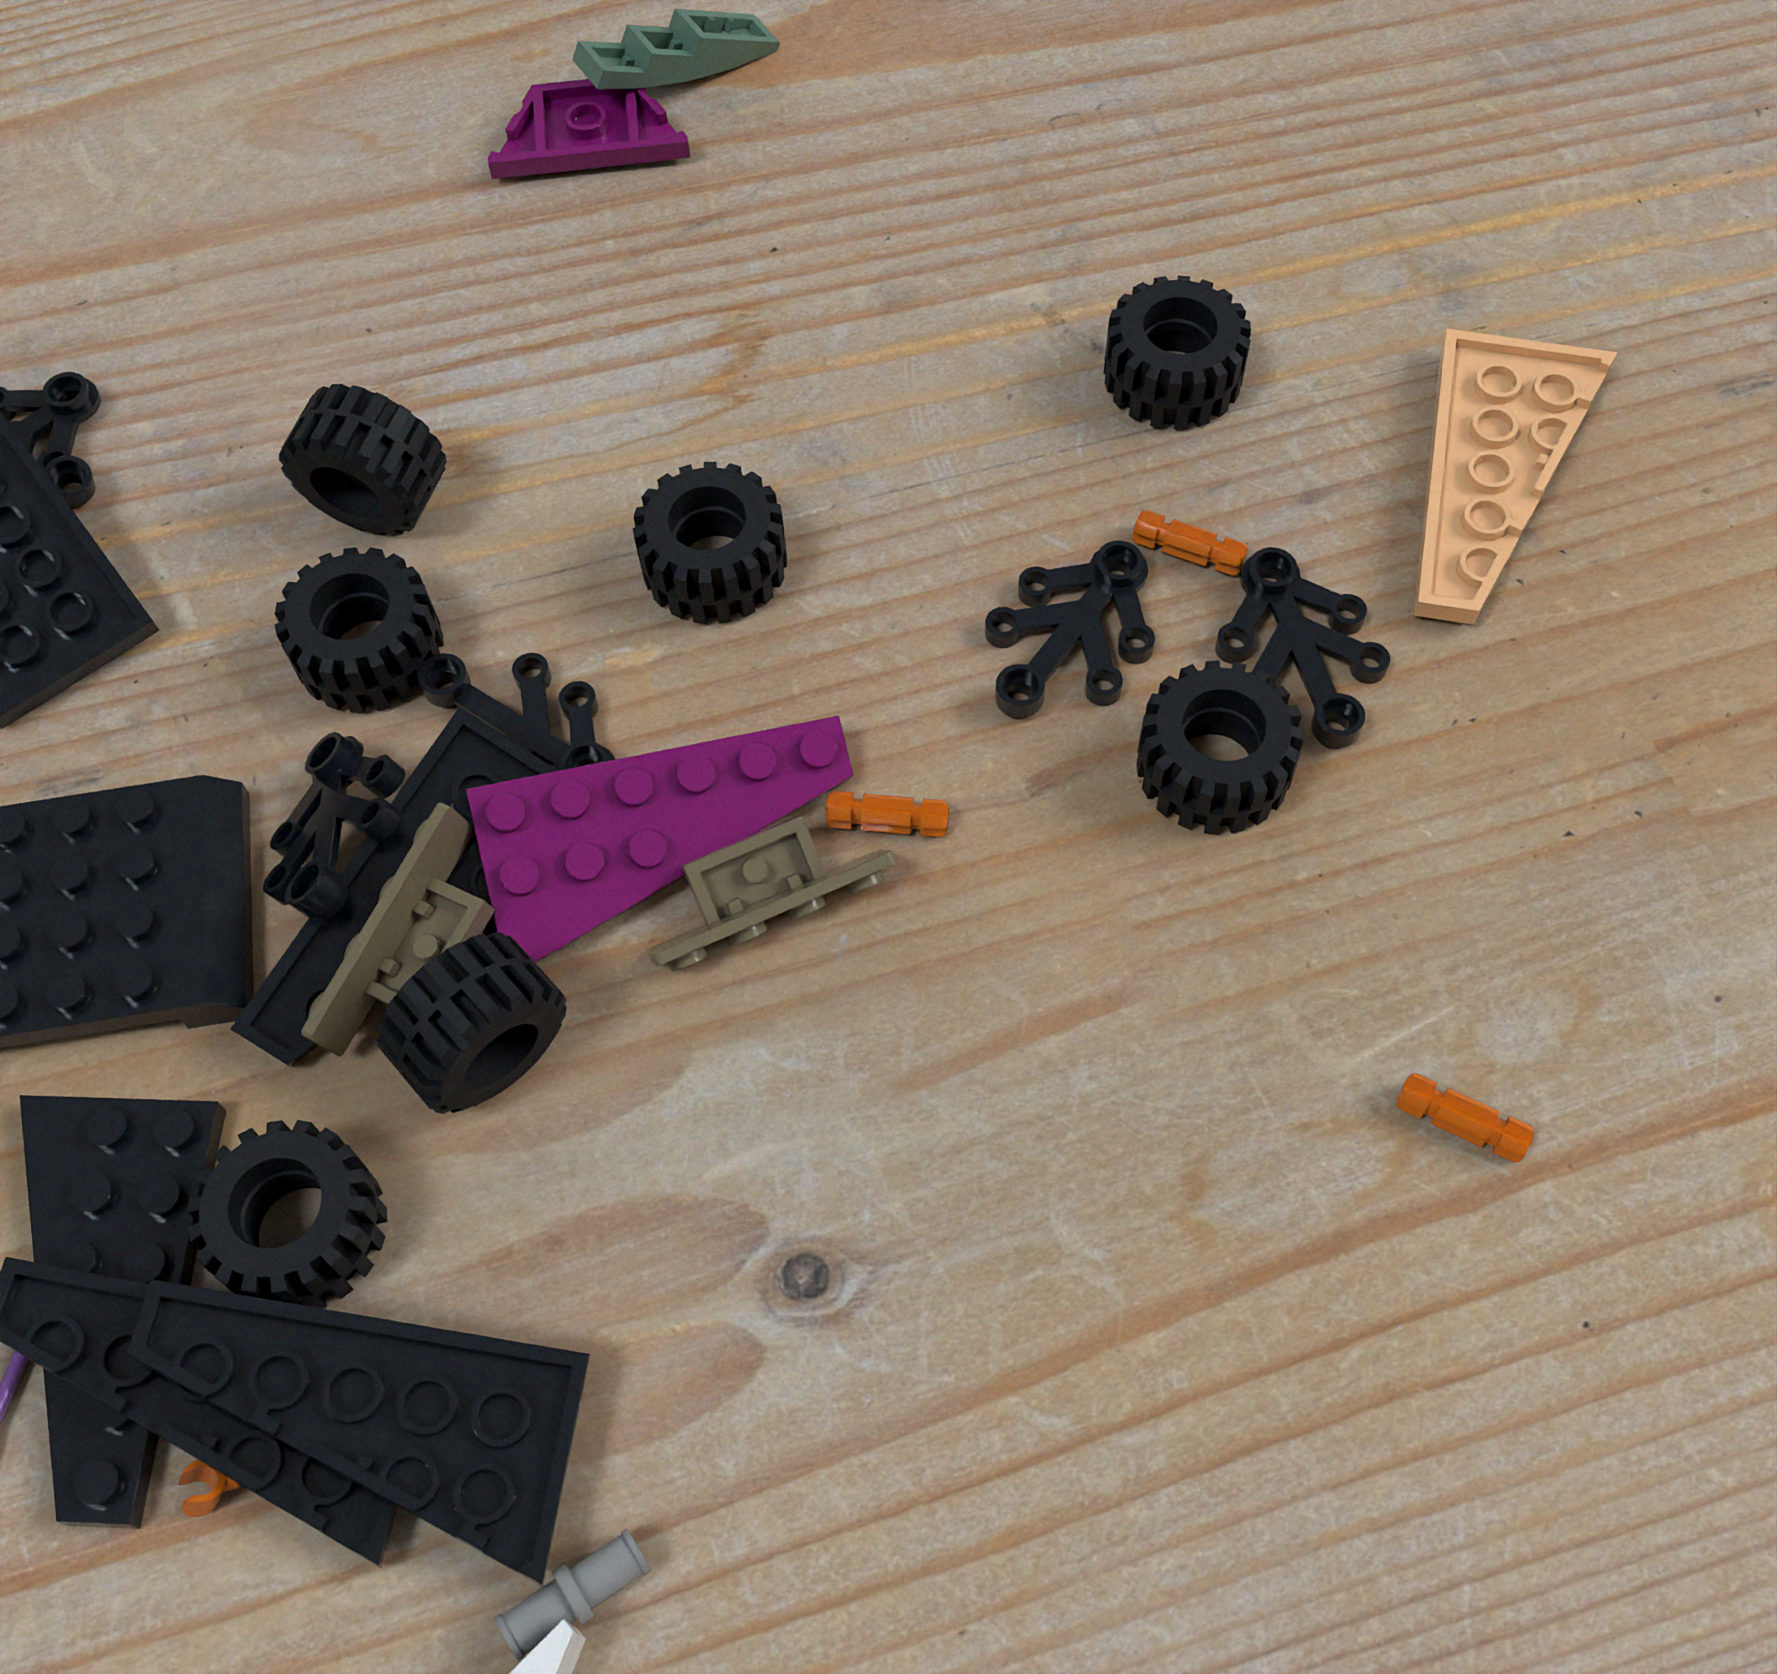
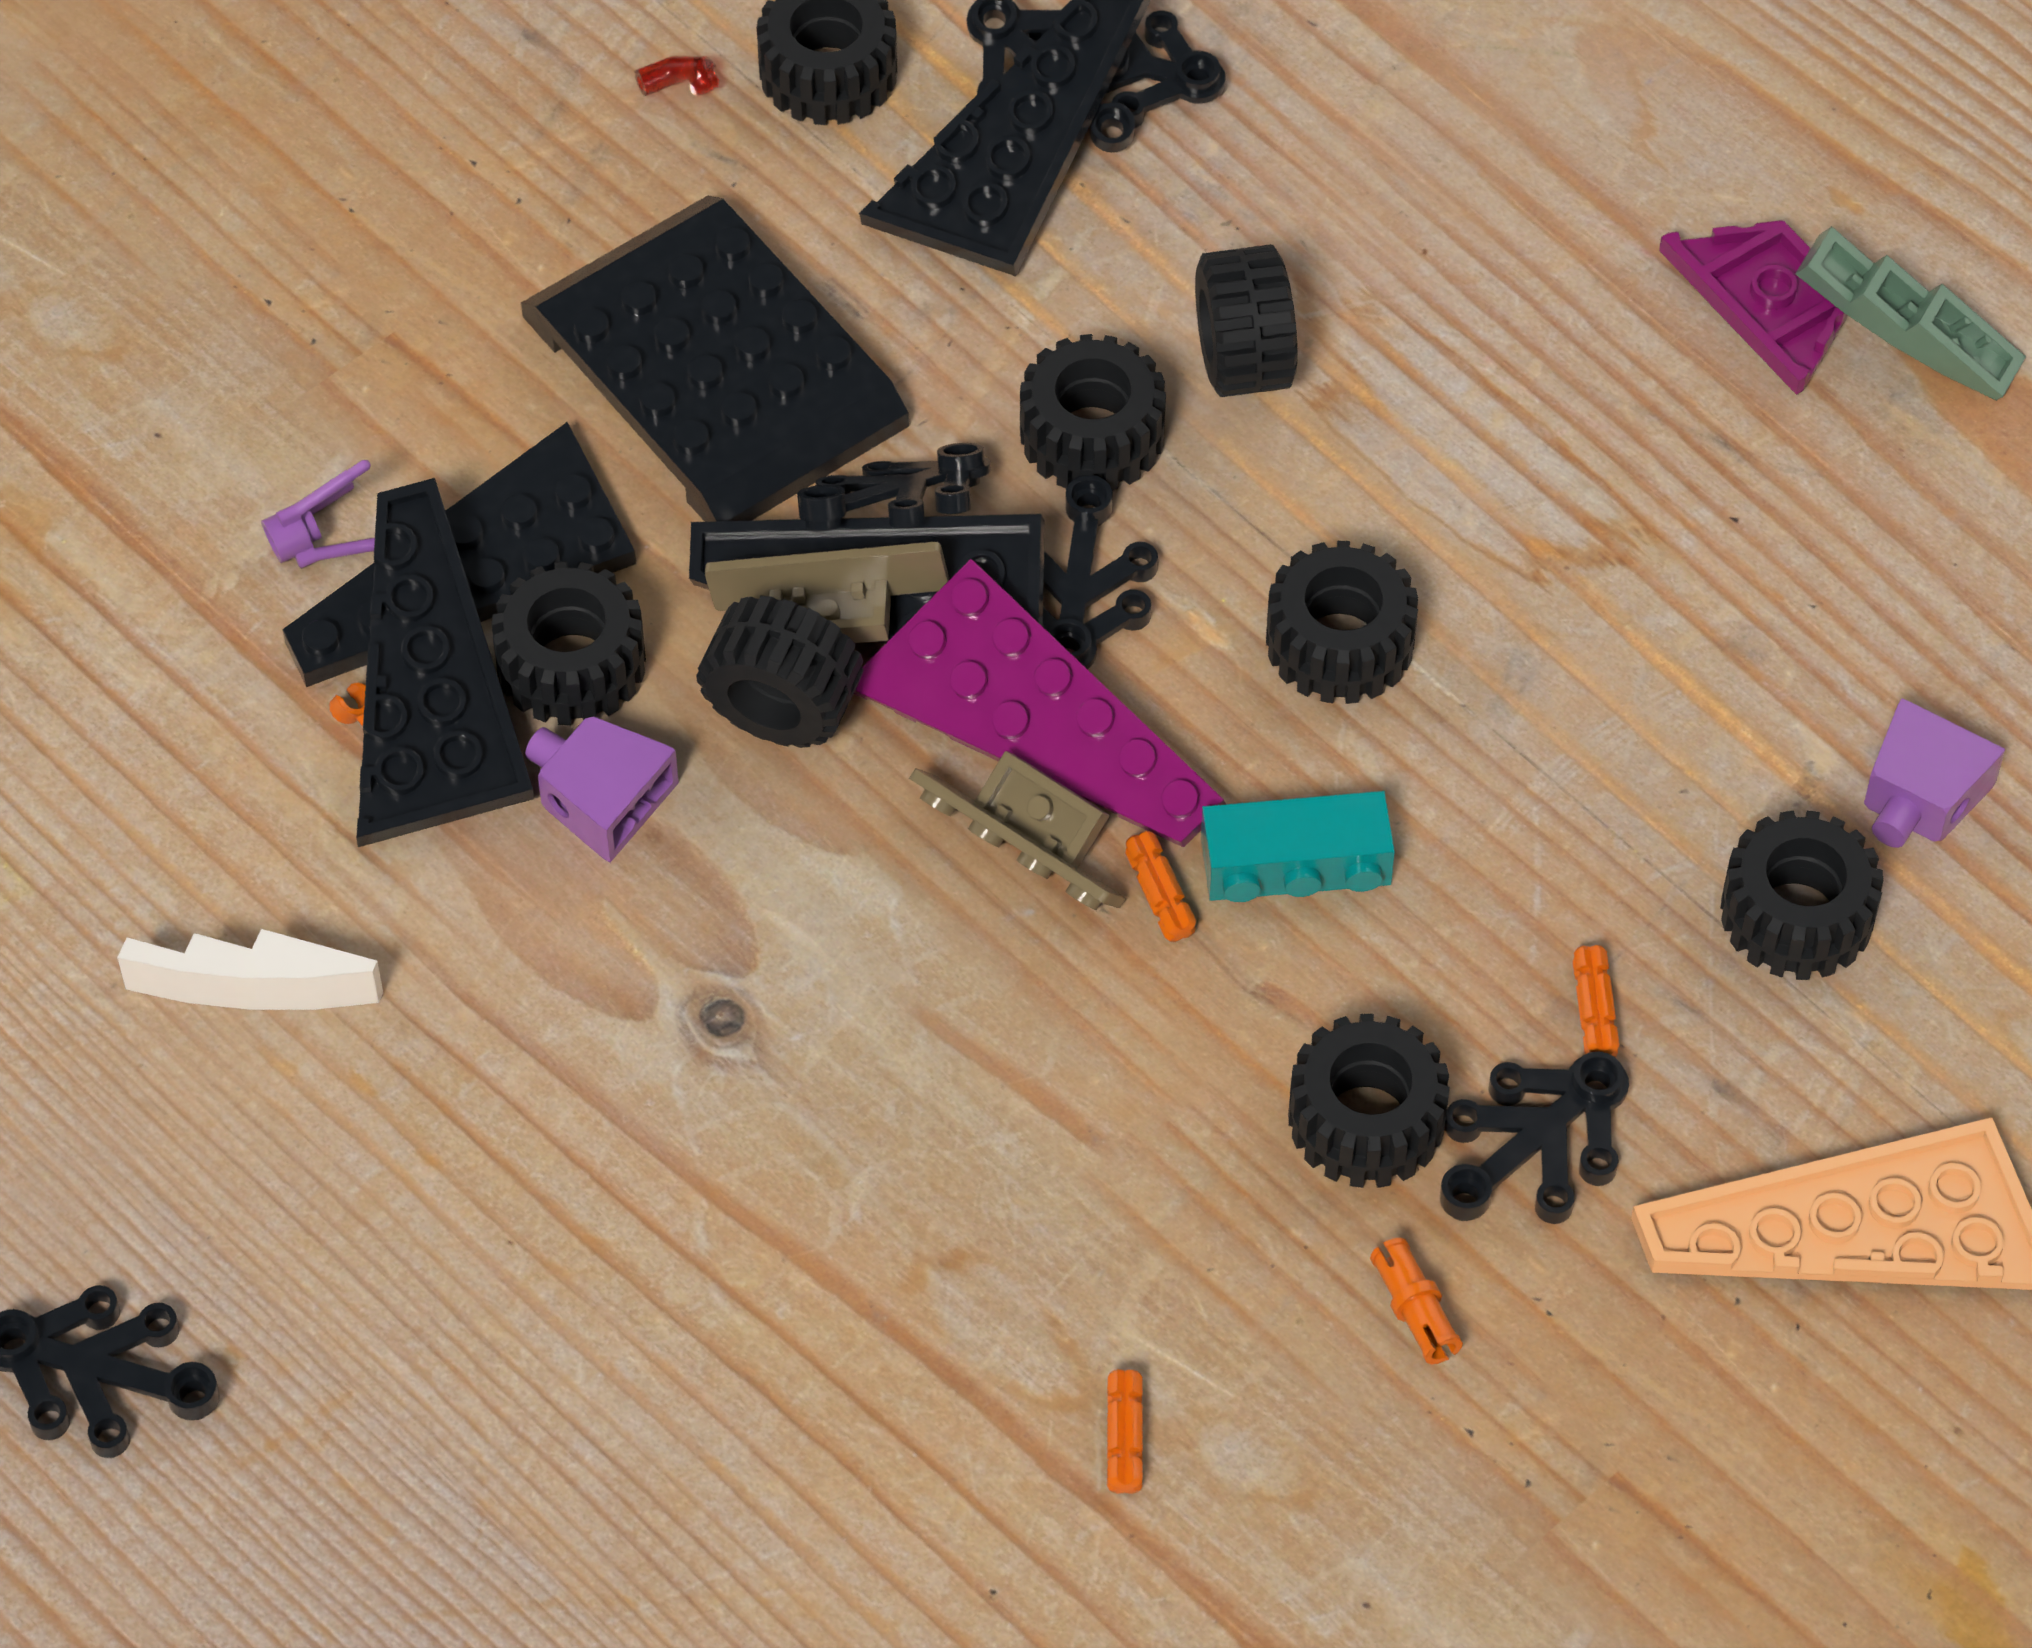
camera: 60 degrees right, 5 degrees down
(419, 1414) = (469, 800): black wing -> none
(468, 1264) = (602, 781): none -> medium lavender torso
(572, 1594) = (406, 973): light grey pin -> none
(916, 685) = (1297, 846): none -> teal brick
(1072, 623) = (1445, 946): black plant -> none
(1101, 230) = (1928, 776): none -> medium lavender torso
(1432, 809) = (1416, 1300): none -> orange pin

